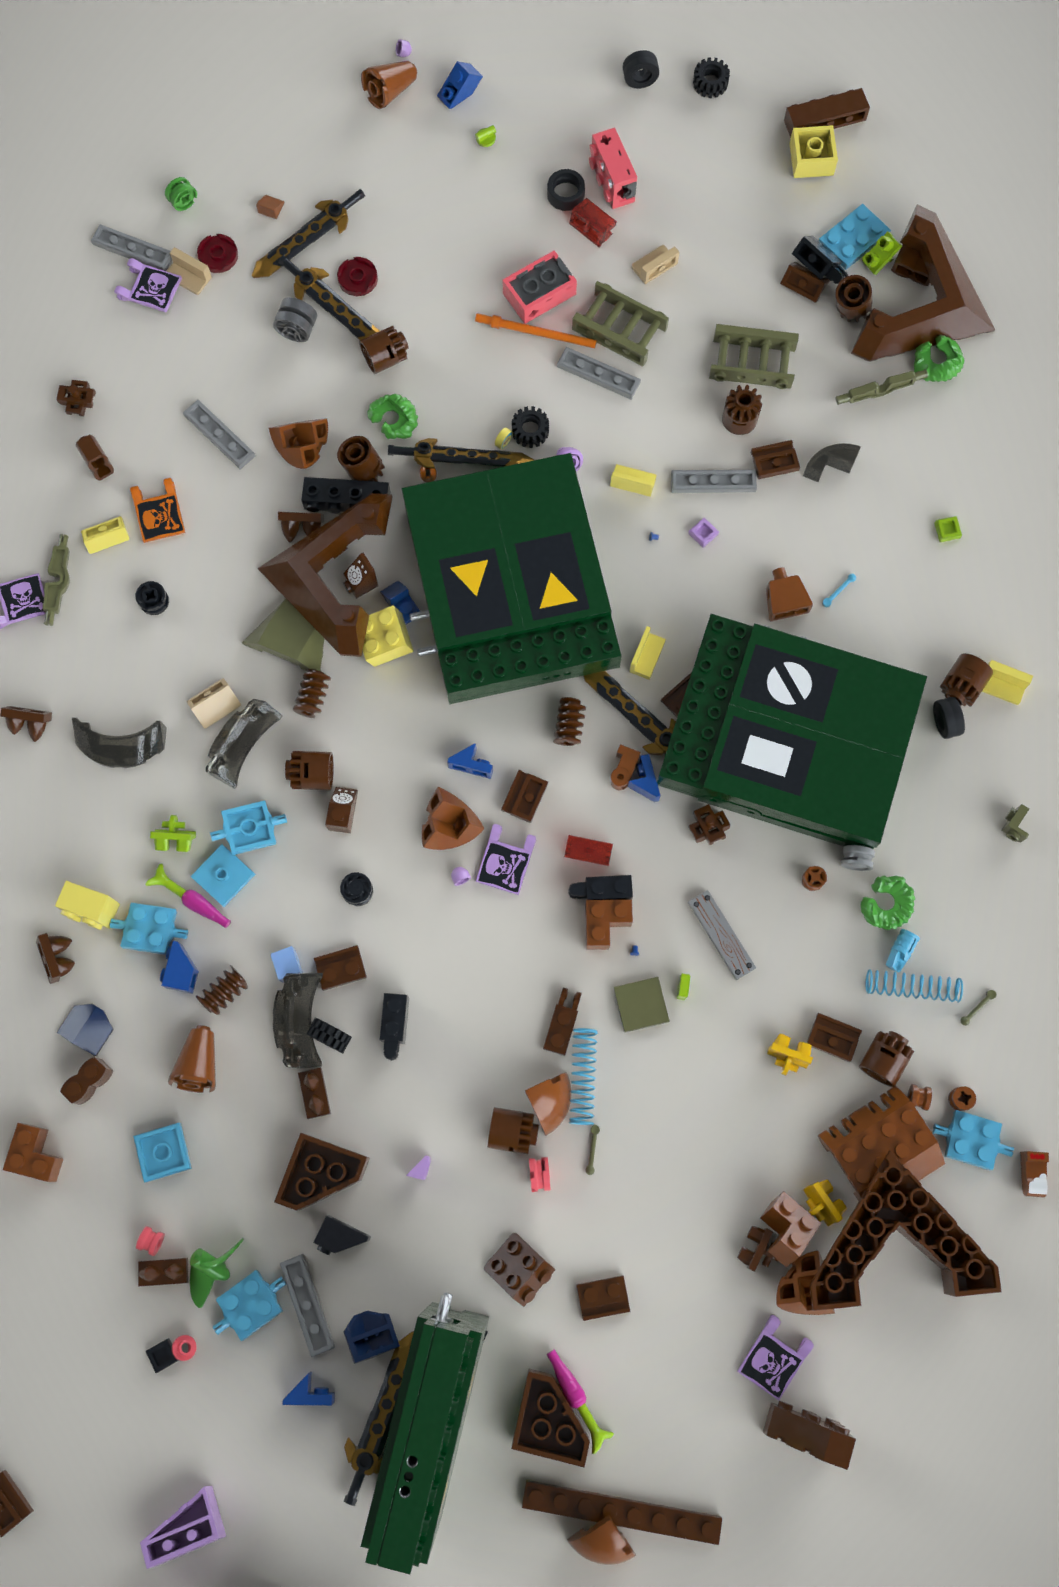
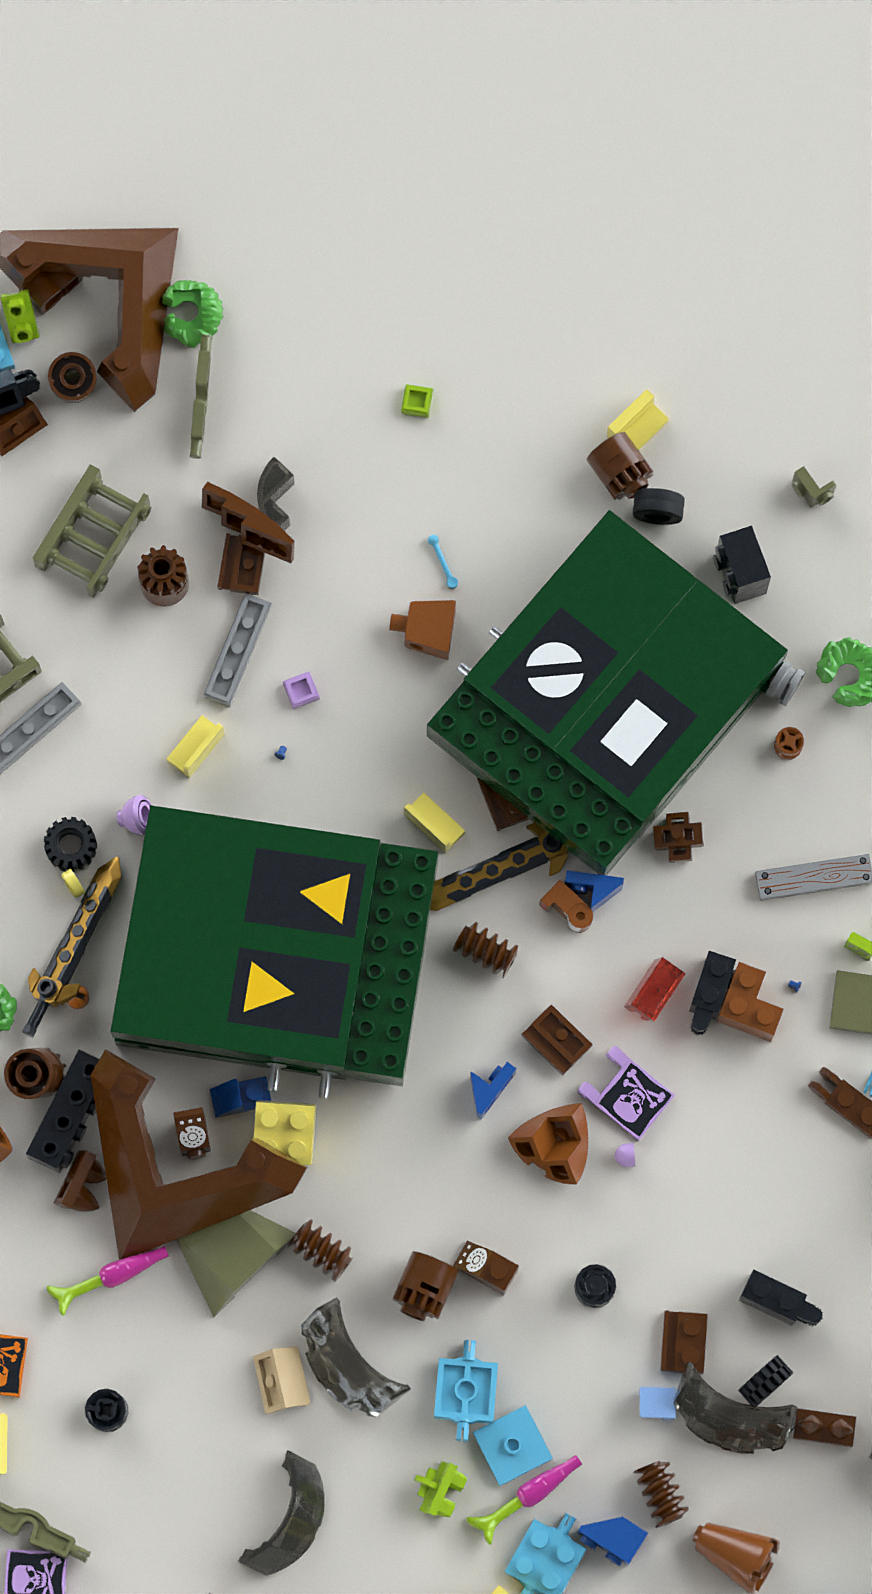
camera: 70 degrees left, 0 degrees up
(243, 564) = (109, 1276): none -> dark pink piece
(806, 445) = (255, 527): none -> reddish brown slope
(932, 791) = (742, 565): none -> black brick

